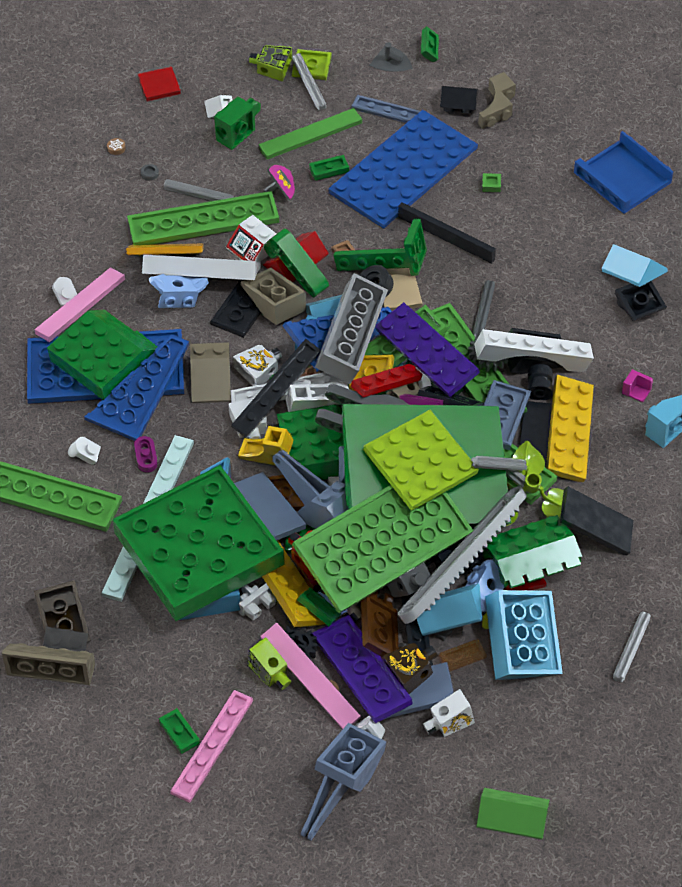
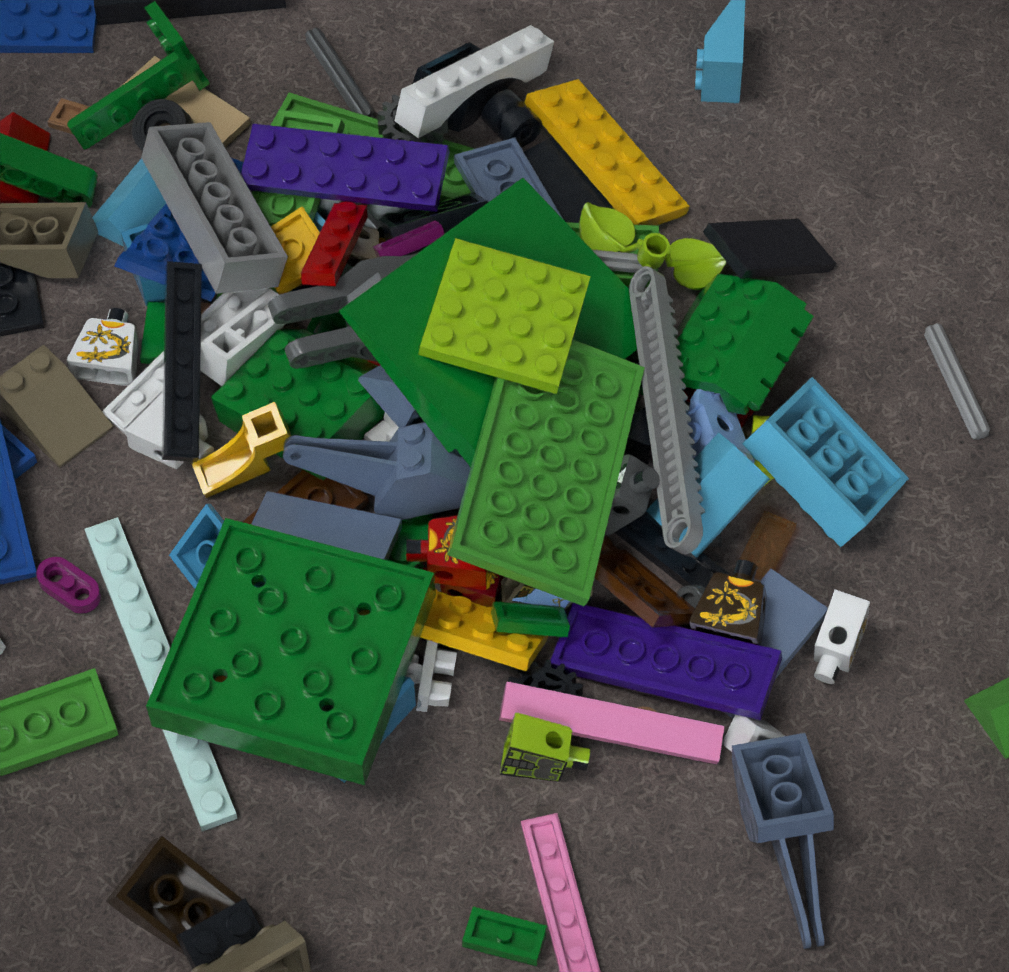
camera: 40 degrees left, 5 degrees up
(499, 463) = (595, 253): light grey axle -> none
(637, 385) = (634, 43): dark pink panel -> none

